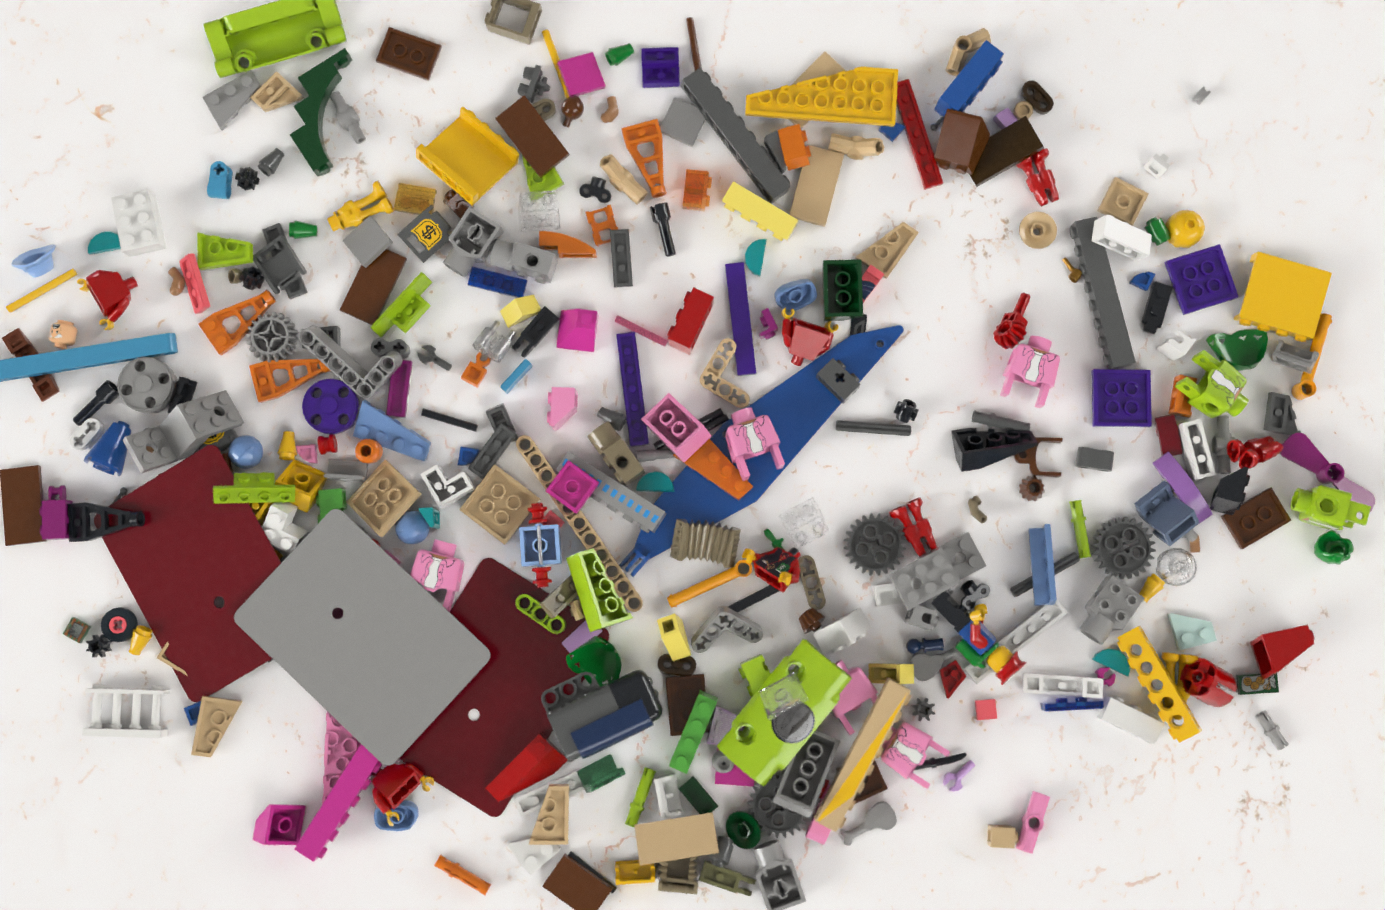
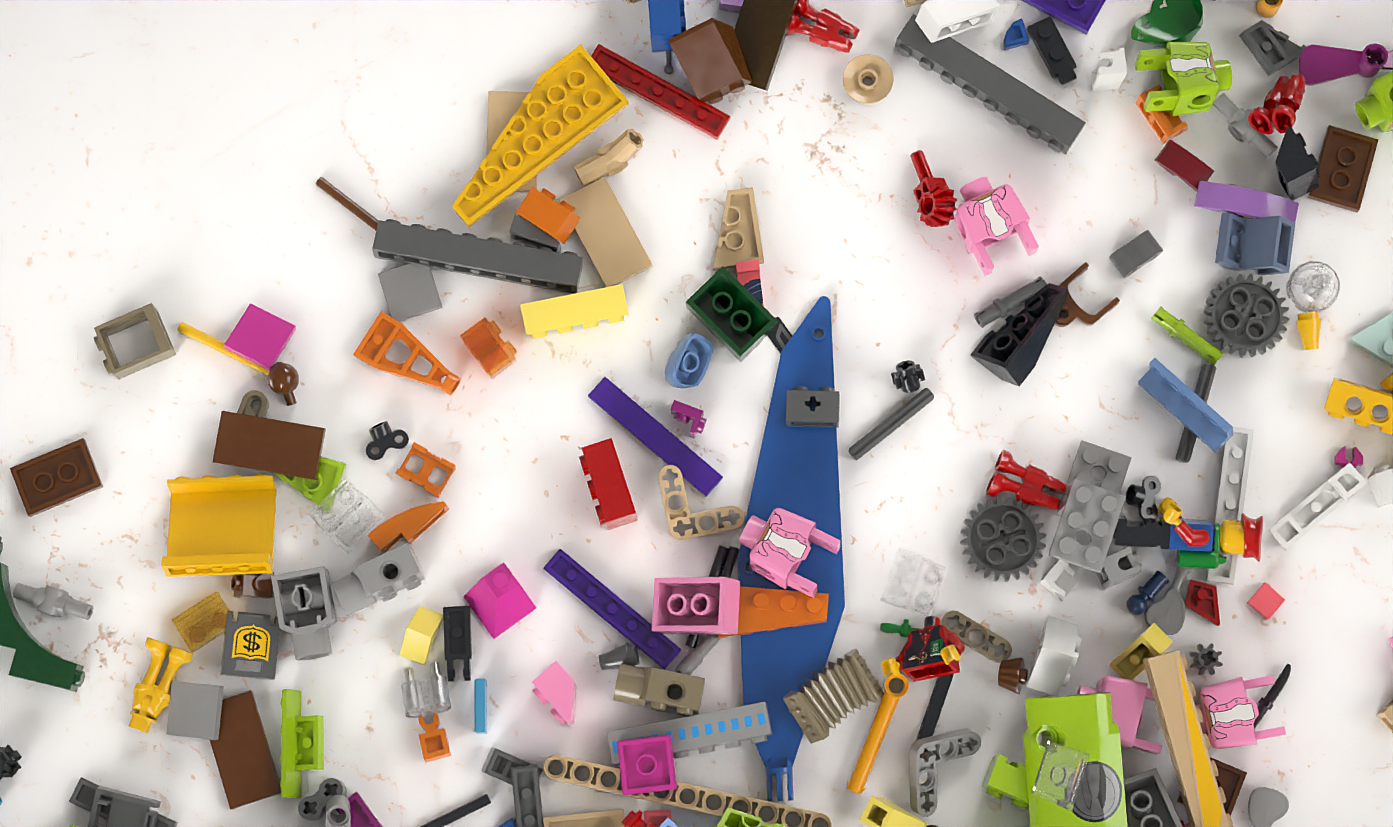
camera: 40 degrees left, 5 degrees down
(270, 162) = (13, 722): dark grey cone -> none
(302, 230) = (112, 762): green cone -> none
(433, 358) = (377, 767): dark grey bar -> none
(497, 282) = (371, 628): clear blue plate -> none
(530, 90) = (210, 381): dark grey hips -> none
(612, 112) = (327, 346): medium nougat arm -> none
(618, 54) = (280, 280): green cone -> none
(621, 258) = (476, 486): dark grey tile -> none
(622, 179) = (403, 404): tan piece -> none
(640, 330) = (565, 541): clear pink bar -> none
(655, 483) = (725, 682): teal tile -> none
(660, 67) = (335, 256): dark purple slope -> none
(661, 216) = (477, 405): black piece -> none
(754, 256) = (610, 359): teal tile -> none
(805, 338) = (740, 396): torso -> none
(892, 132) = (632, 112): blue tile -> none
(958, 776) = (1303, 689): lavender bar -> none
(975, 512) = (1071, 414): dark tan arm -> none
(1025, 491) = (1099, 347): reddish brown piece -> none
(1075, 273) = (945, 88): pearl gold hand -> none
(1080, 703) = (1350, 508): clear blue plate -> none
(1109, 609) = (1290, 388): light grey brick -> none
(1114, 660) = (1340, 435): teal tile -> none
(1121, 398) = (1104, 170): dark purple plate -> none
(1194, 540) = (1305, 244): arm -> none
(1195, 450) = (1224, 155): white brick -> none

